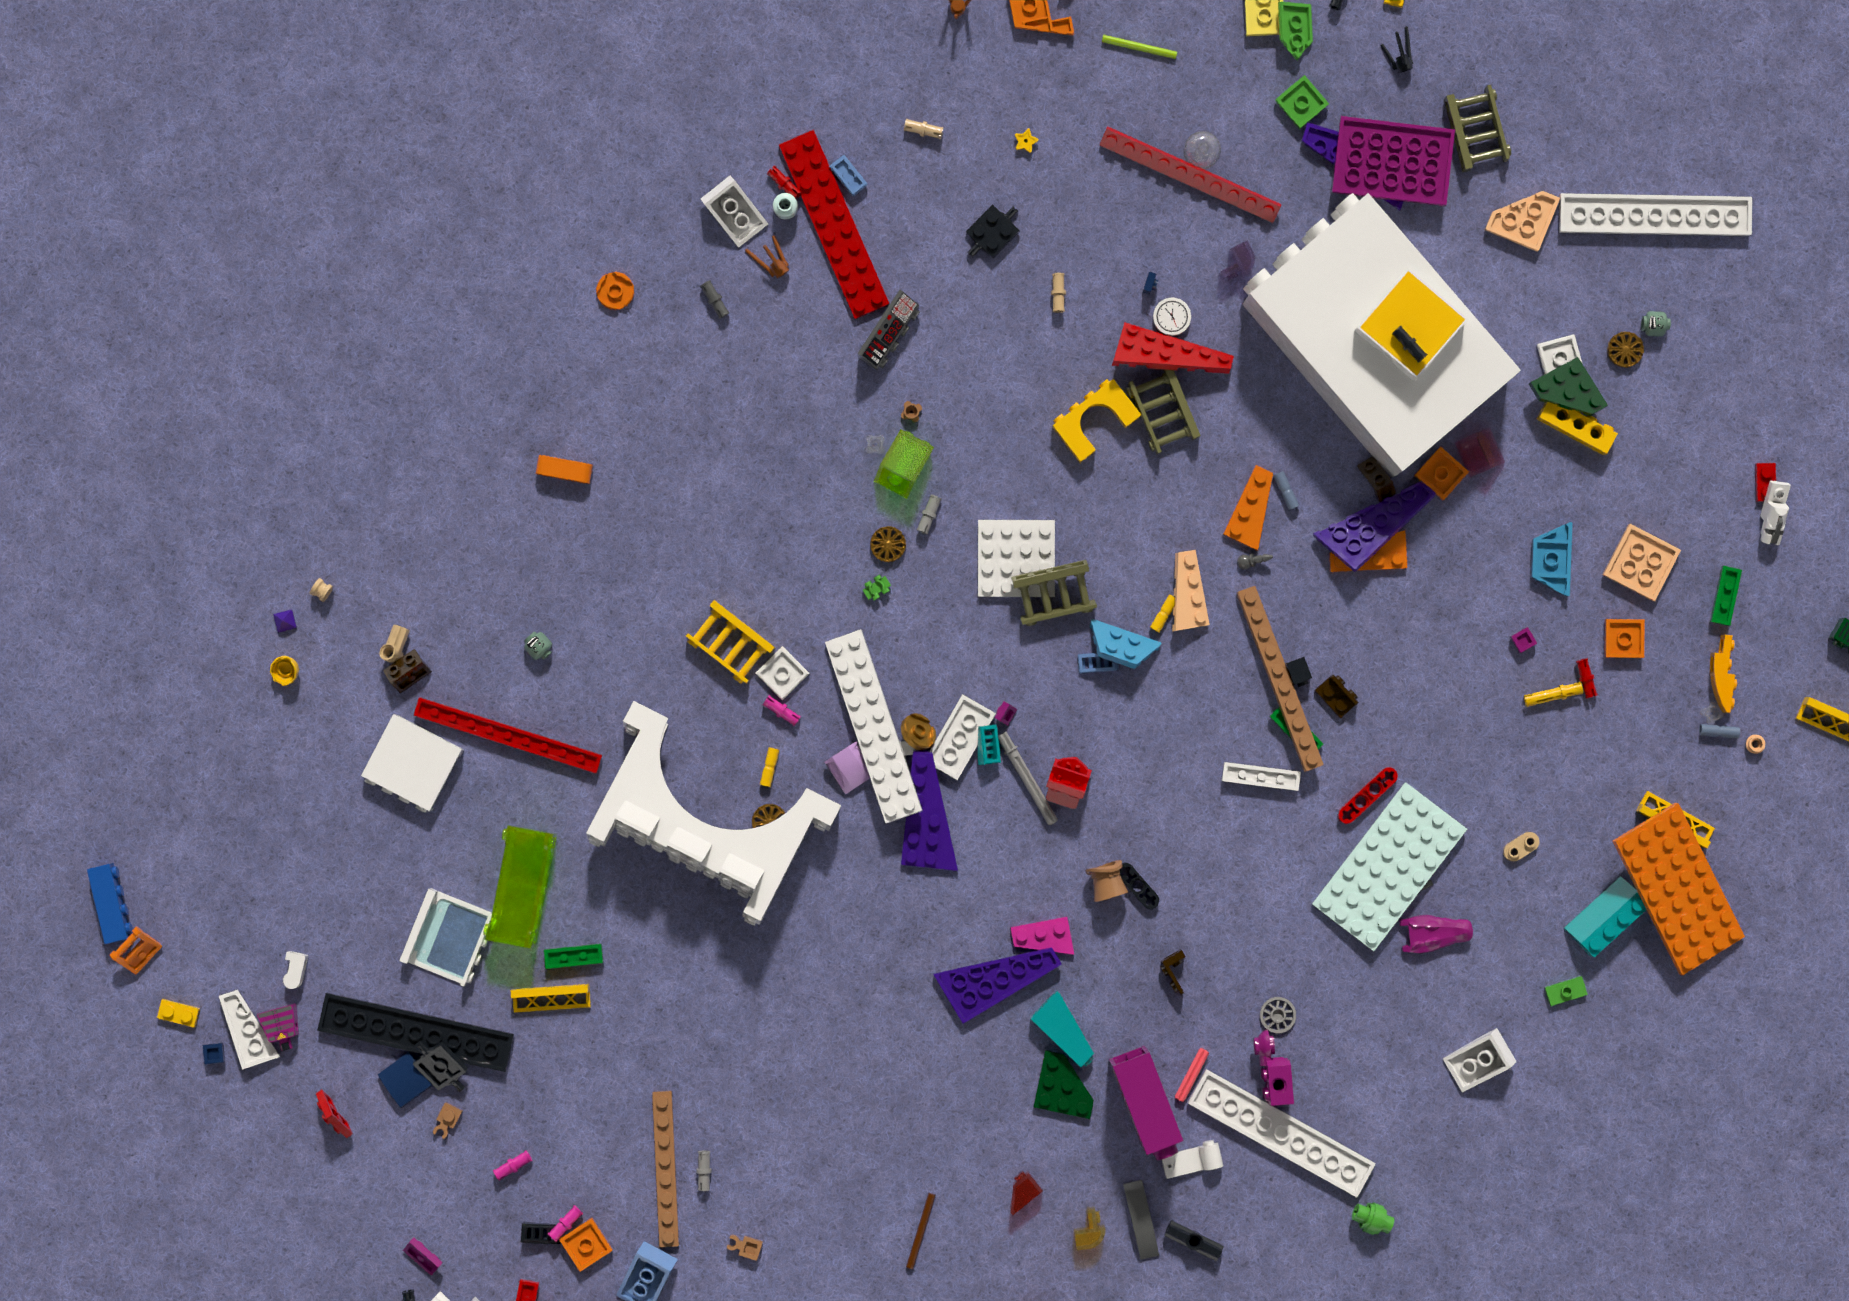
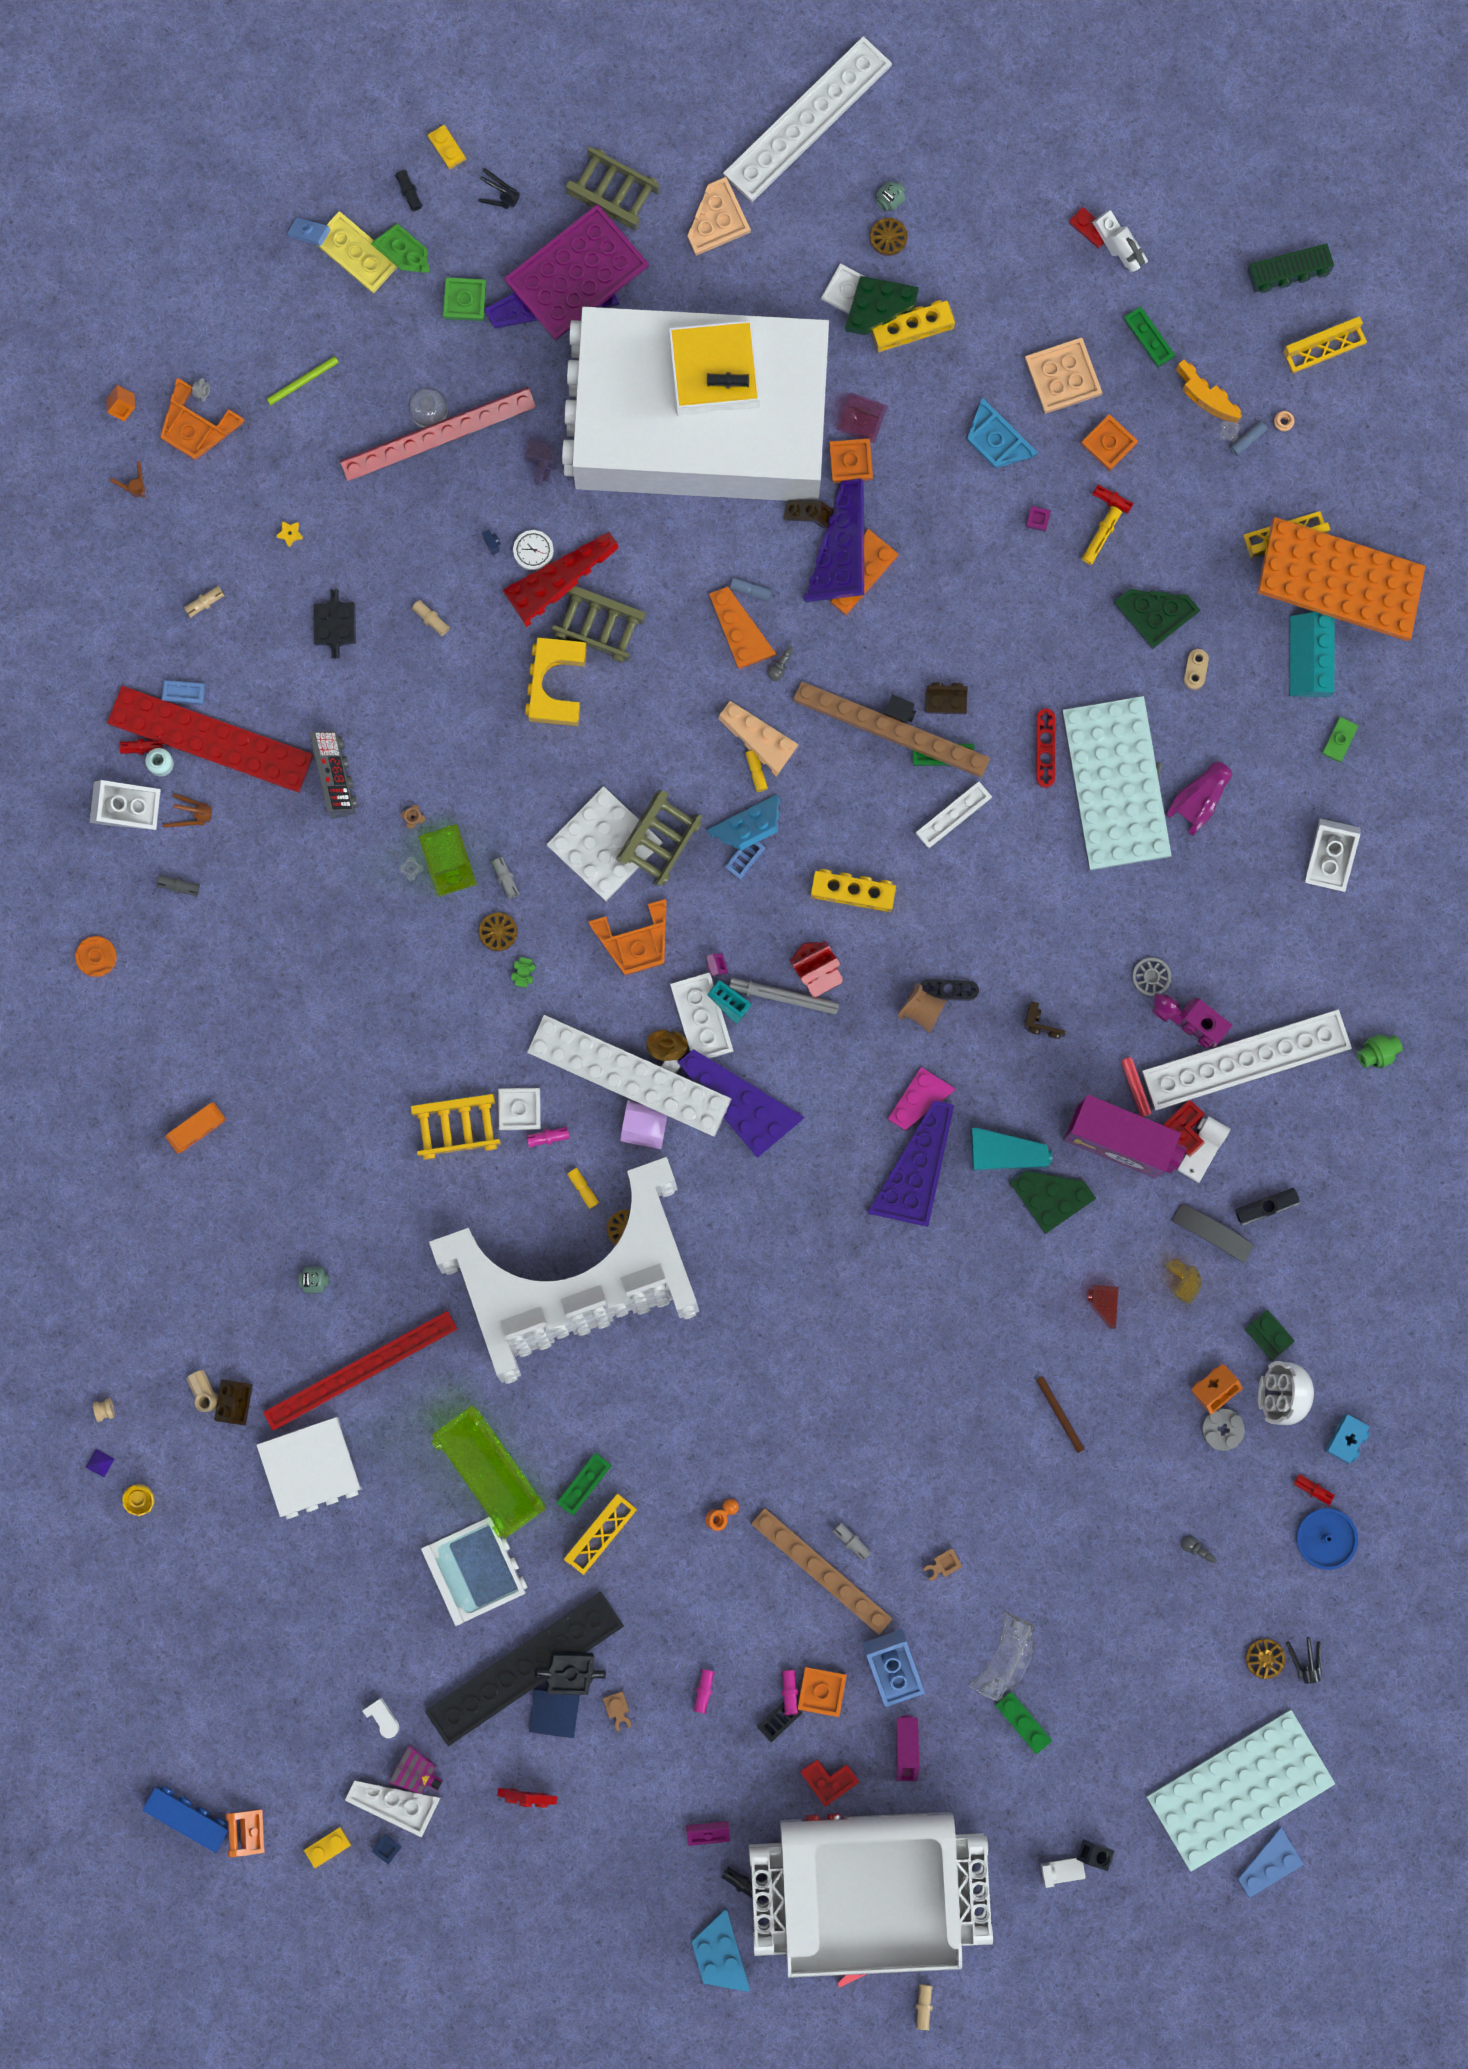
camera: 50 degrees left, 5 degrees down
(649, 1067) = (729, 1507): none -> orange plate
(964, 648) = (637, 948): none -> orange wing
(1123, 735) = (862, 899): none -> yellow brick
(1192, 1130) = (1182, 1122): none -> red plate
(1534, 783) = (1156, 613): none -> dark green plate

